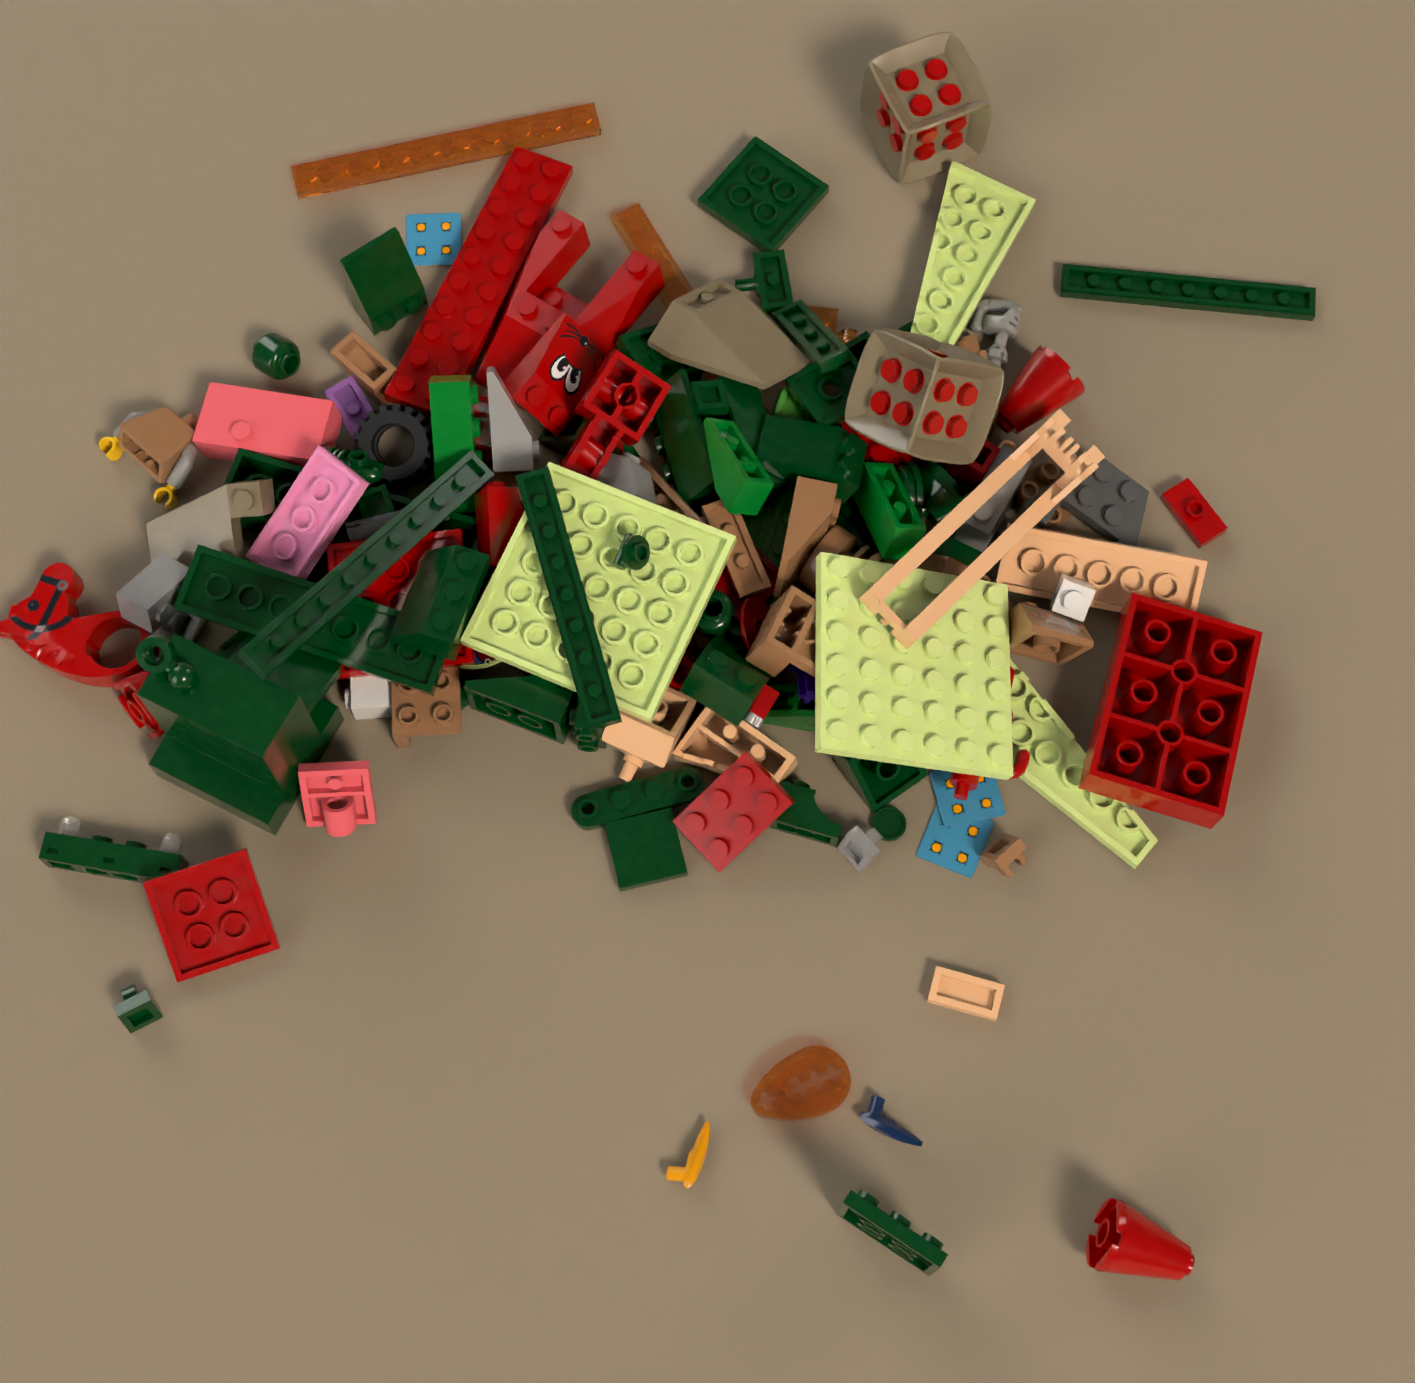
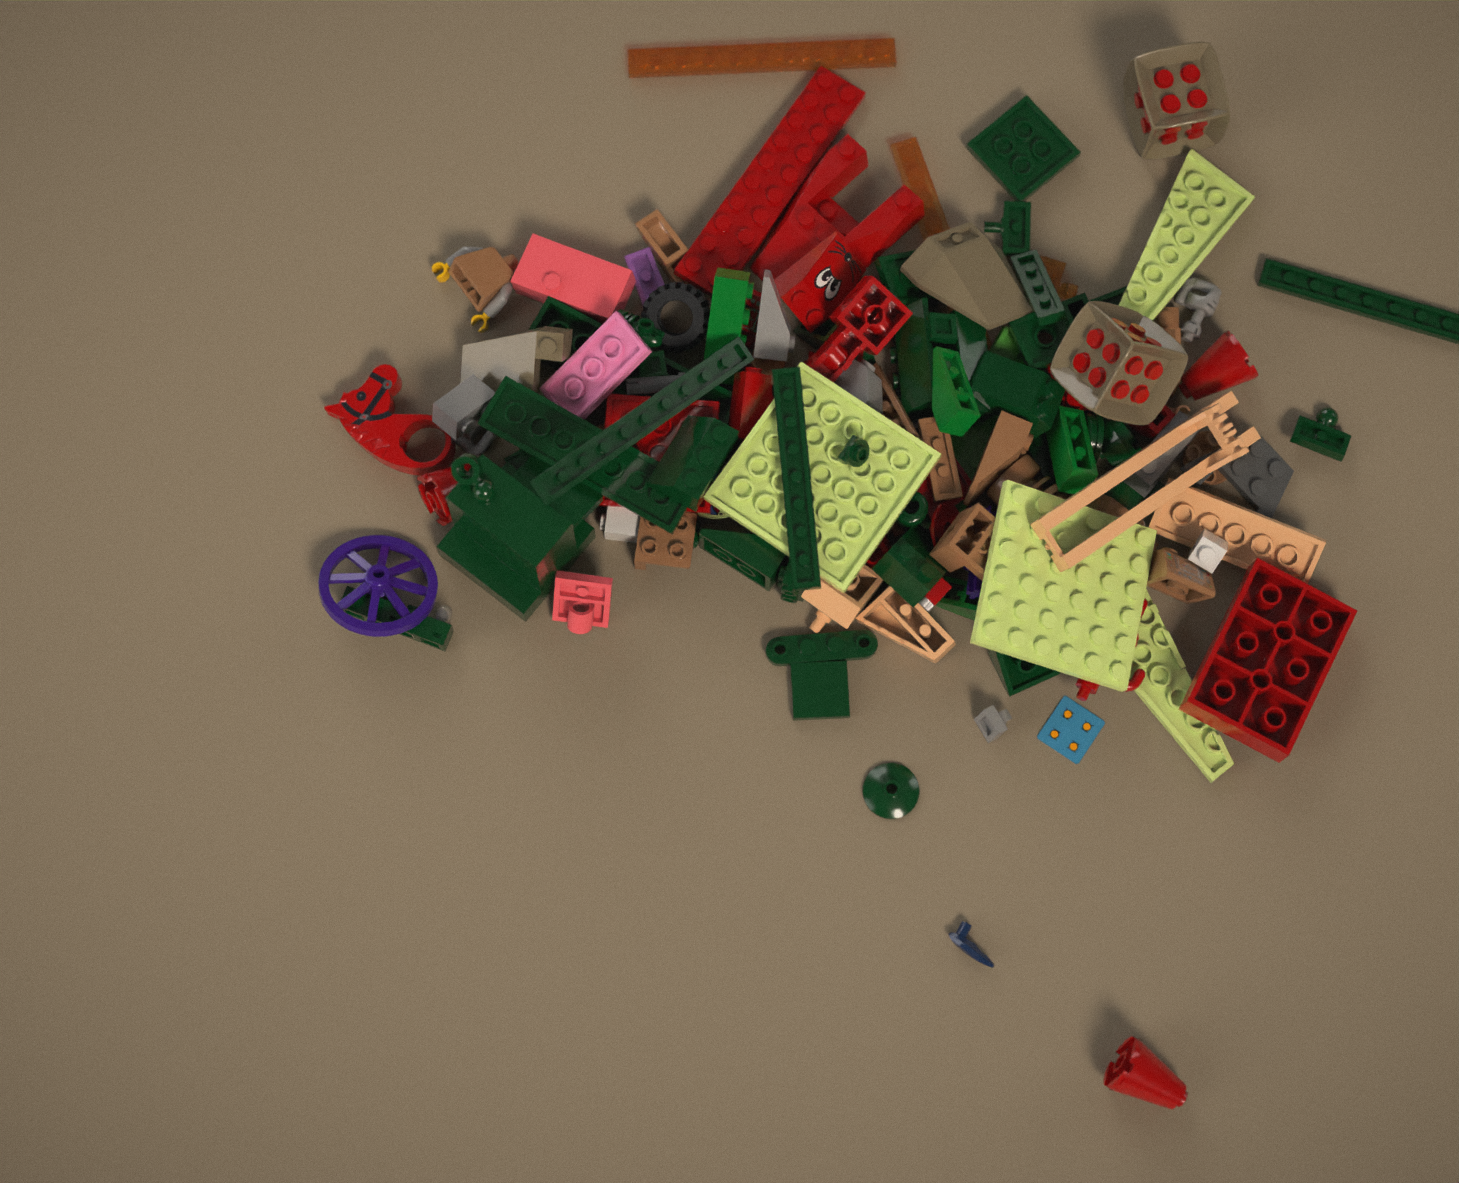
camera: 10 degrees right, 5 degrees up
(82, 820) = (378, 583): none -> dark purple wheel
(137, 1009) = (398, 740): dark green tile -> none
(211, 914) = (468, 677): red plate -> none
(276, 356) = (589, 218): dark green head -> none
(383, 282) = (690, 173): dark green slope -> none
(433, 238) = (736, 135): dark azure sticker -> none
(694, 1162) = (813, 944): light orange bar -> none
(733, 811) = (896, 674): red plate -> none
(754, 970) = (886, 804): none -> dark green dish
(799, 1066) = (909, 886): clear orange piece -> none
(804, 816) = (949, 687): dark green arch -> none
(889, 823) = (1020, 707): dark green piece -> none
(892, 1232) = (955, 1027): dark green plate -> none
(965, 993) = (1053, 855): light nougat tile -> none
(980, 804) = (1097, 706): dark azure sticker -> none
(1003, 852) = (1106, 749): medium nougat tile -> none
(1170, 445) = (1321, 435): none -> dark green plate
(1193, 513) = (1327, 496): red plate -> none

